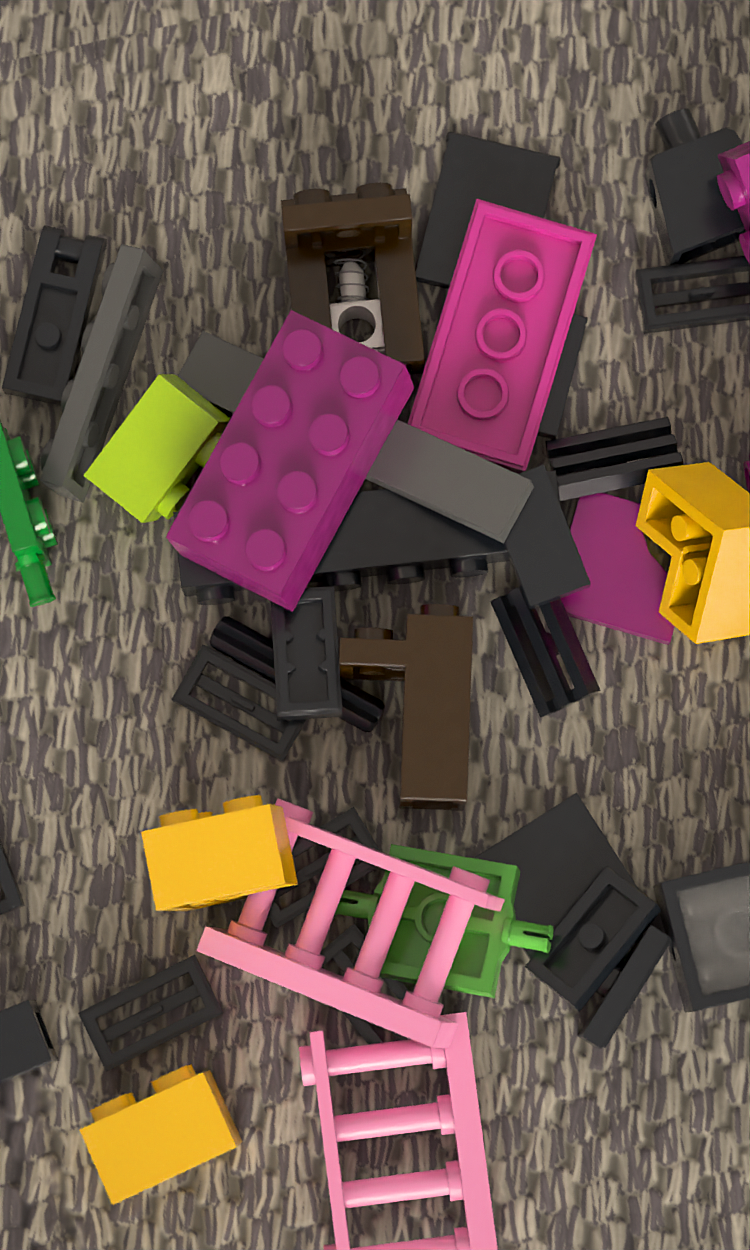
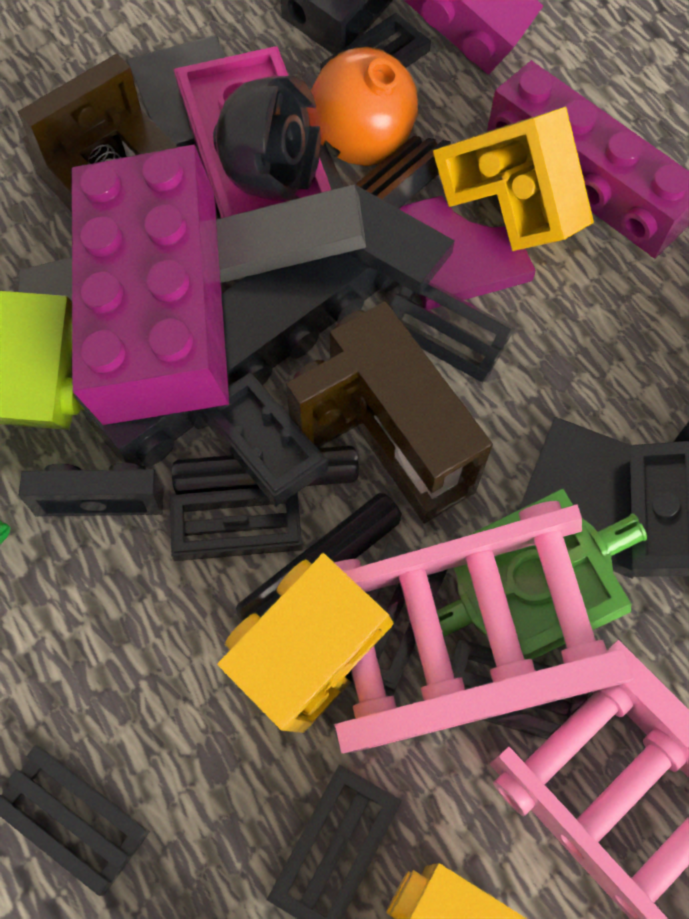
camera: 35 degrees left, 15 degrees down
(120, 585) = (79, 492): none -> black plate
(291, 784) = (342, 543): none -> black axle
(495, 369) = (268, 138): none -> black cylinder
(631, 361) = (364, 105): none -> orange cylinder

